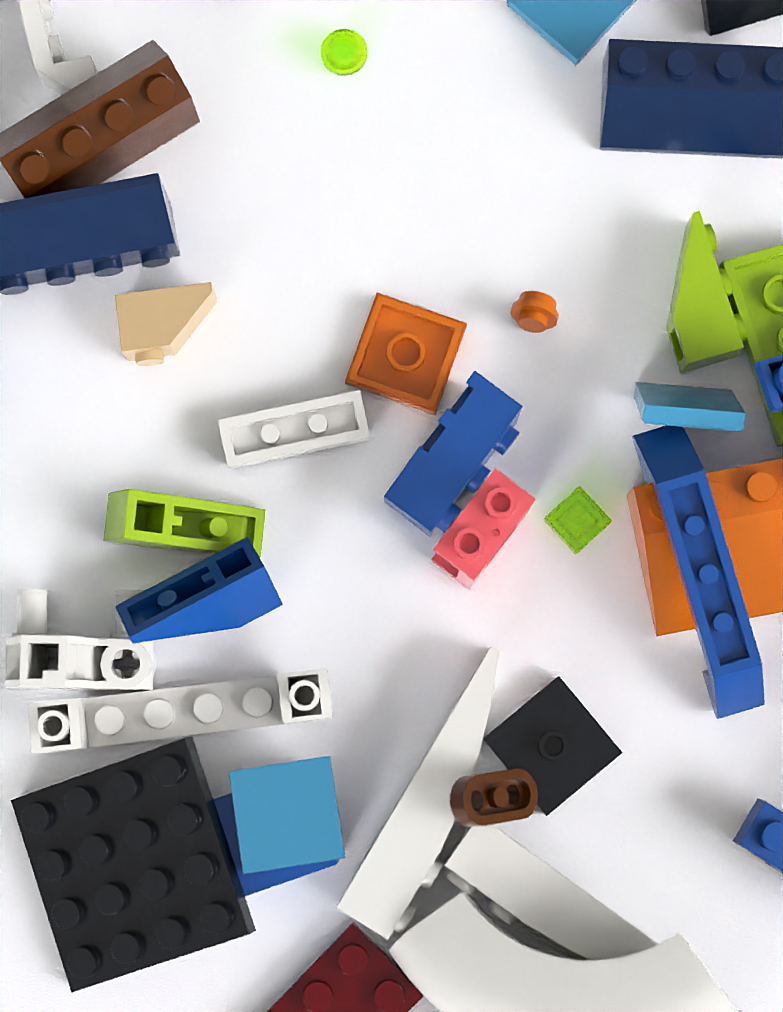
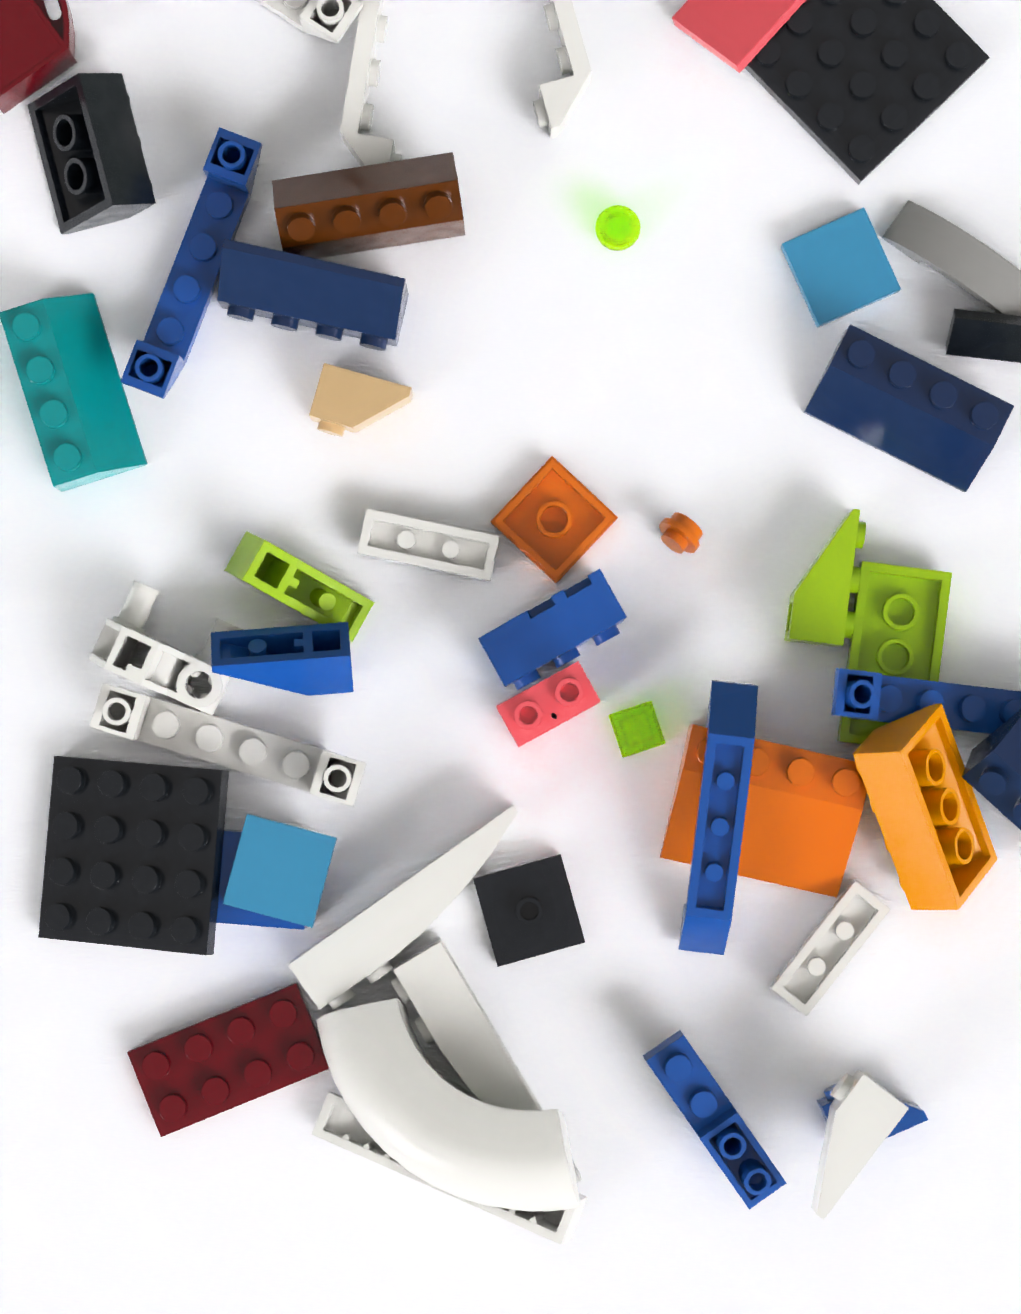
camera: 20 degrees right, 5 degrees up
(493, 797) = (458, 932): reddish brown plate -> none
(689, 406) = (772, 675): dark azure tile -> none

